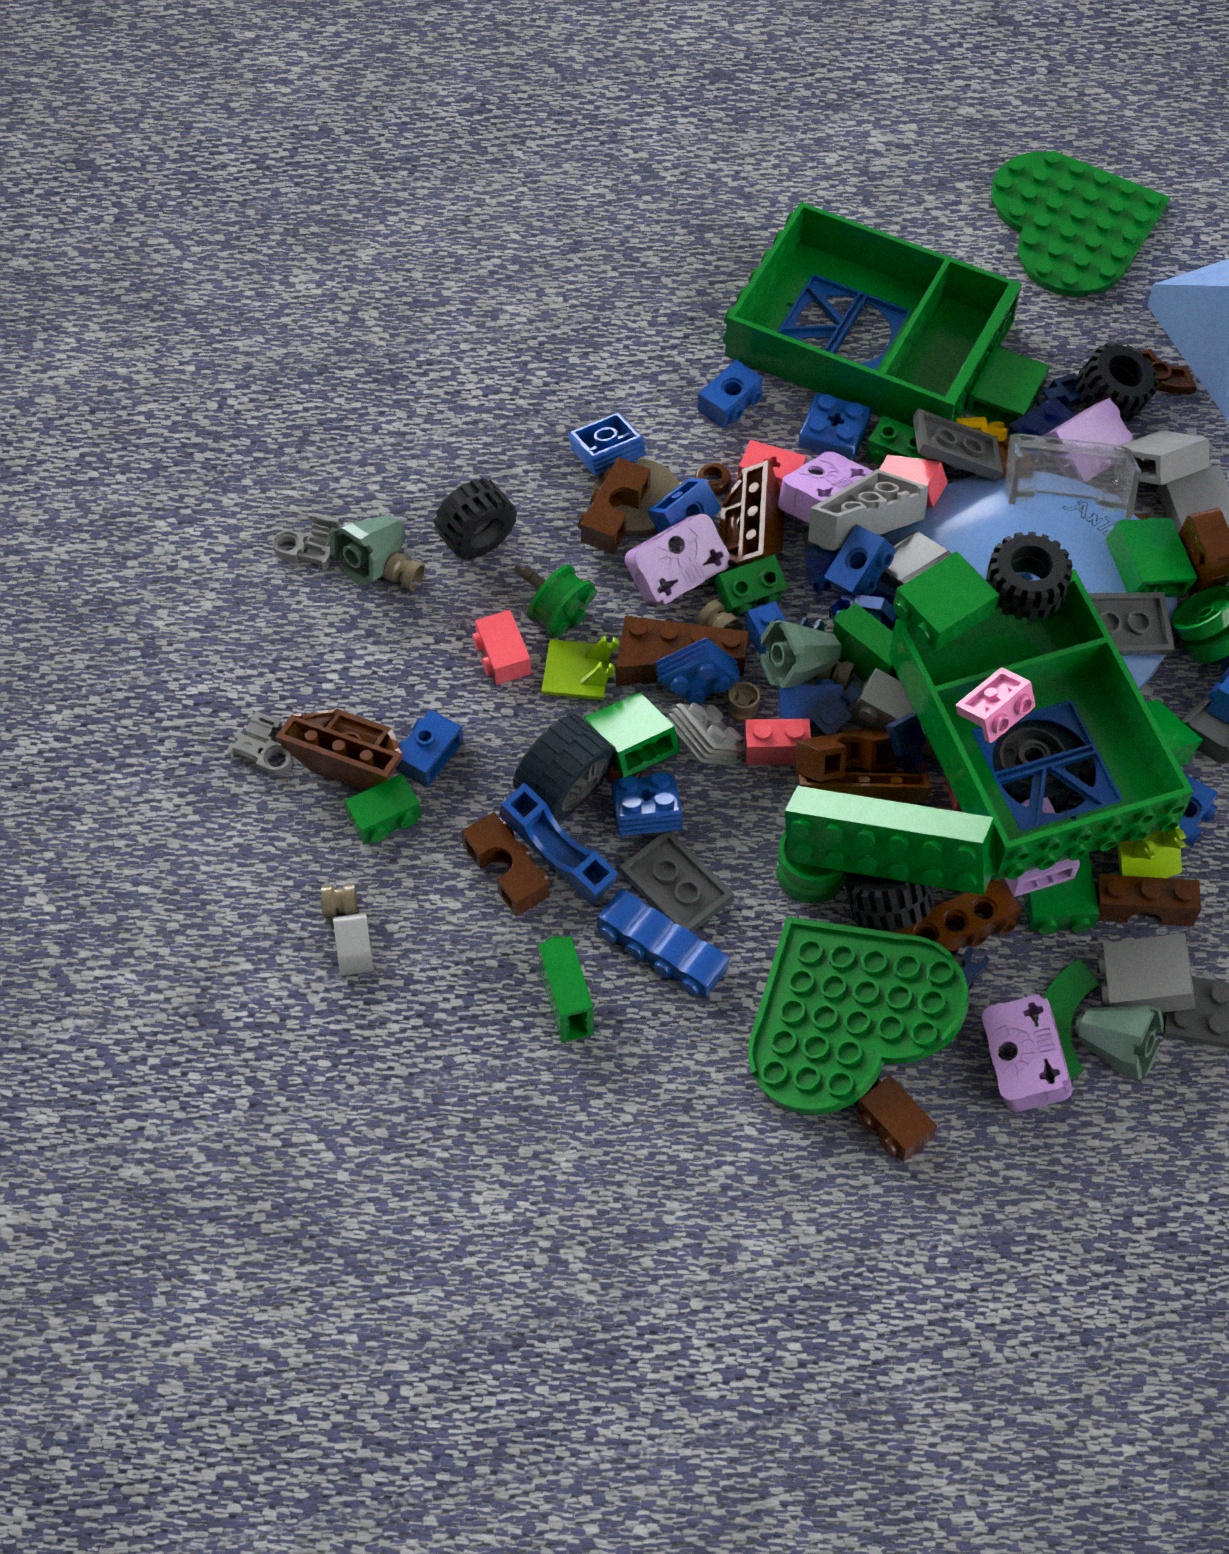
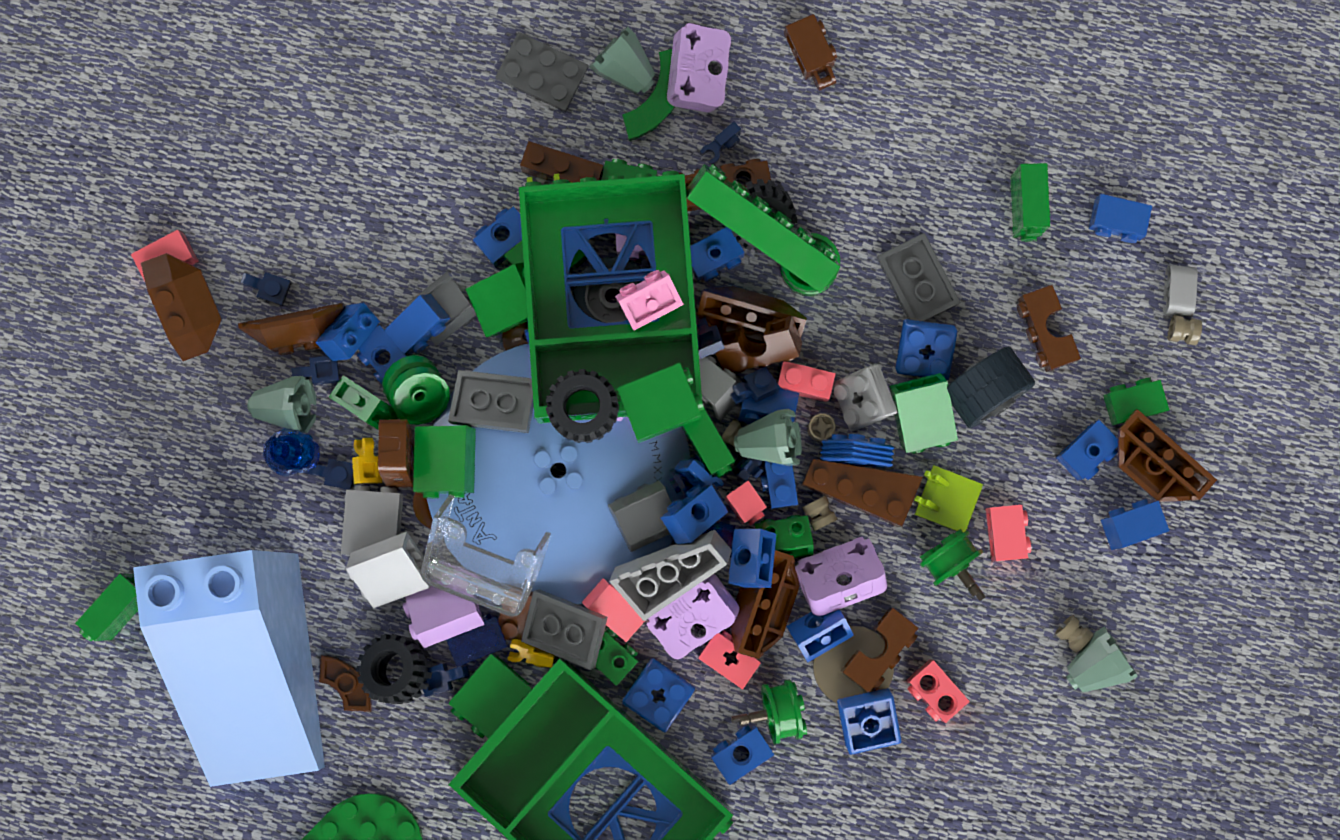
camera: 165 degrees left, 25 degrees up
(259, 739) = (1226, 495): light grey piece -> none
(316, 545) = (1144, 688): light grey piece -> none
(359, 682) = (1134, 525): none -> blue brick
(445, 1007) = (1120, 218): none -> blue brick
(475, 518) = (1007, 660): black tyre -> none
(538, 828) = (992, 305): blue arch -> none
(541, 489) = (941, 686): none -> coral brick
(661, 942) = (944, 231): blue brick -> none
(704, 428) = (781, 712): none -> green wheel
(715, 469) = (773, 659): reddish brown piece -> none
(782, 538) = (752, 558): none -> blue brick
(805, 596) = (746, 503): none -> coral brick
(847, 1005) = (821, 130): green plate -> none
(1148, 973) = (587, 103): light grey brick -> none

